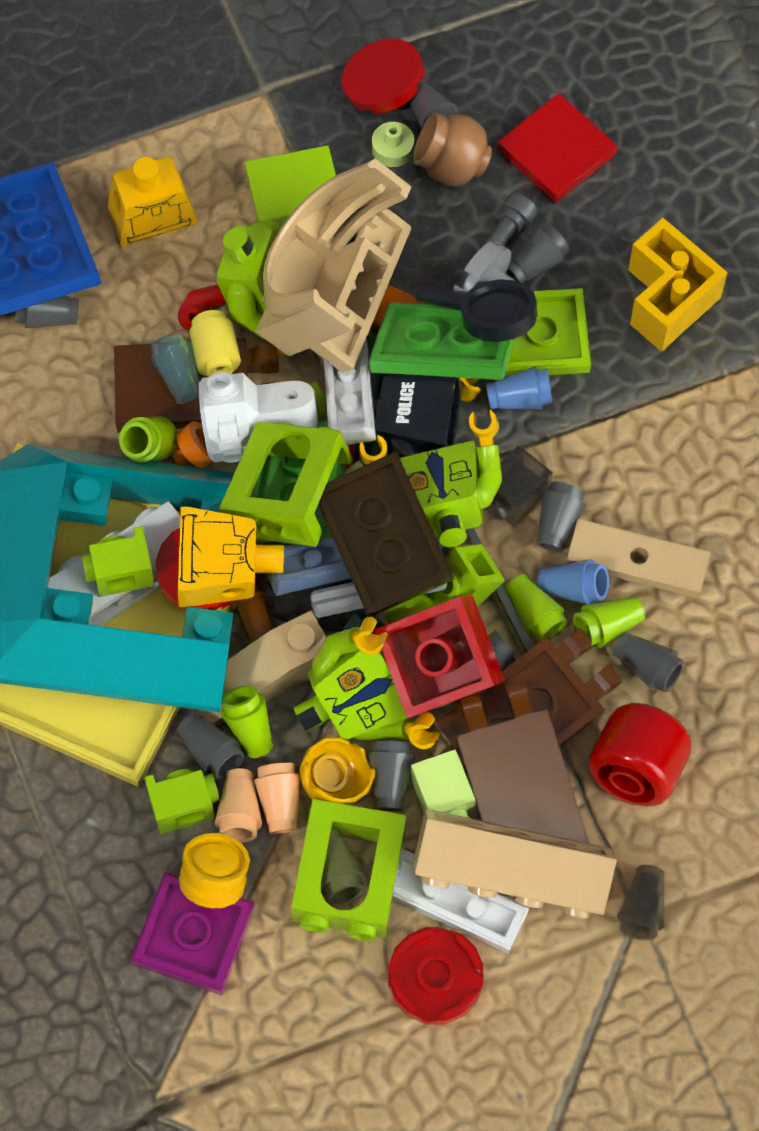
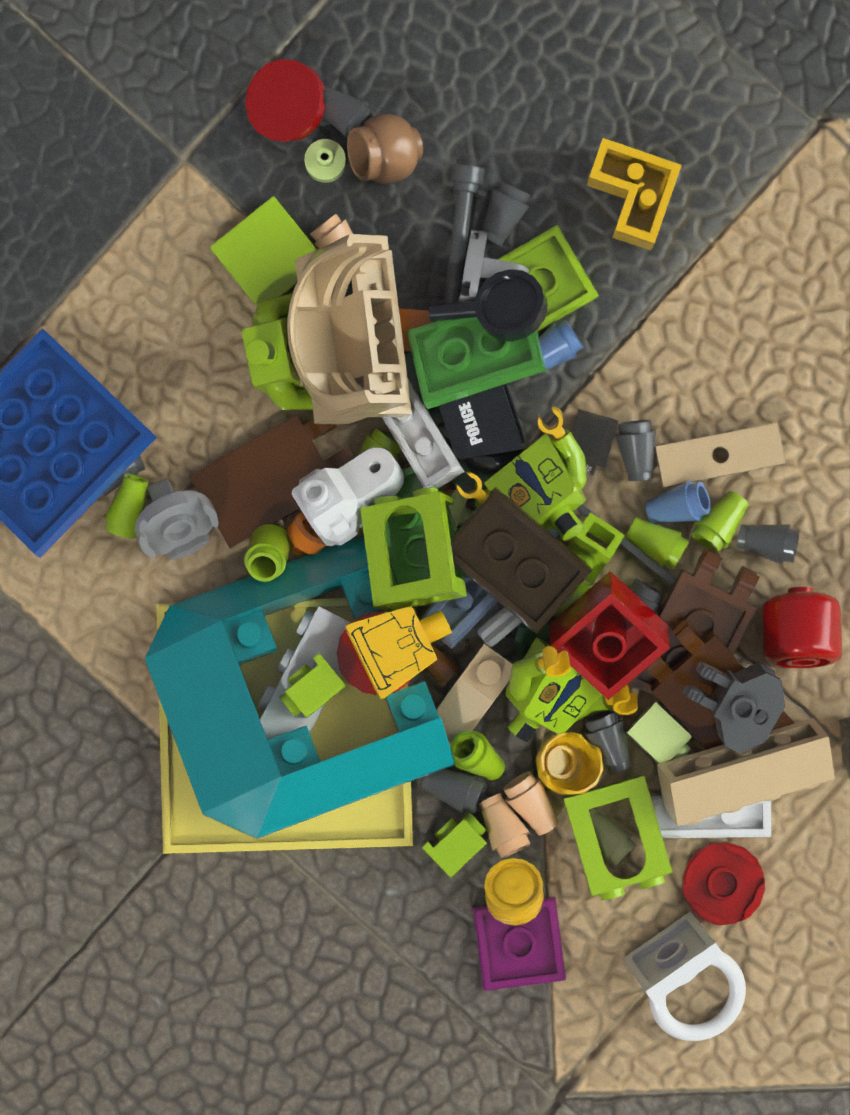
camera: 30 degrees left, 20 degrees up
(40, 343) = (126, 506): none -> lime cone
(75, 372) = (174, 522): none -> light grey tile
(149, 201) = (149, 329): yellow torso -> none
(177, 367) = (257, 476): clear light blue cone -> none
(199, 301) = (238, 402): red arm -> none
(214, 343) = (278, 440): light yellow brick -> none
(342, 1020) = (674, 960): none -> white tile
(536, 775) = (736, 703): none -> dark grey hinge
(557, 148) = (469, 94): red tile -> none

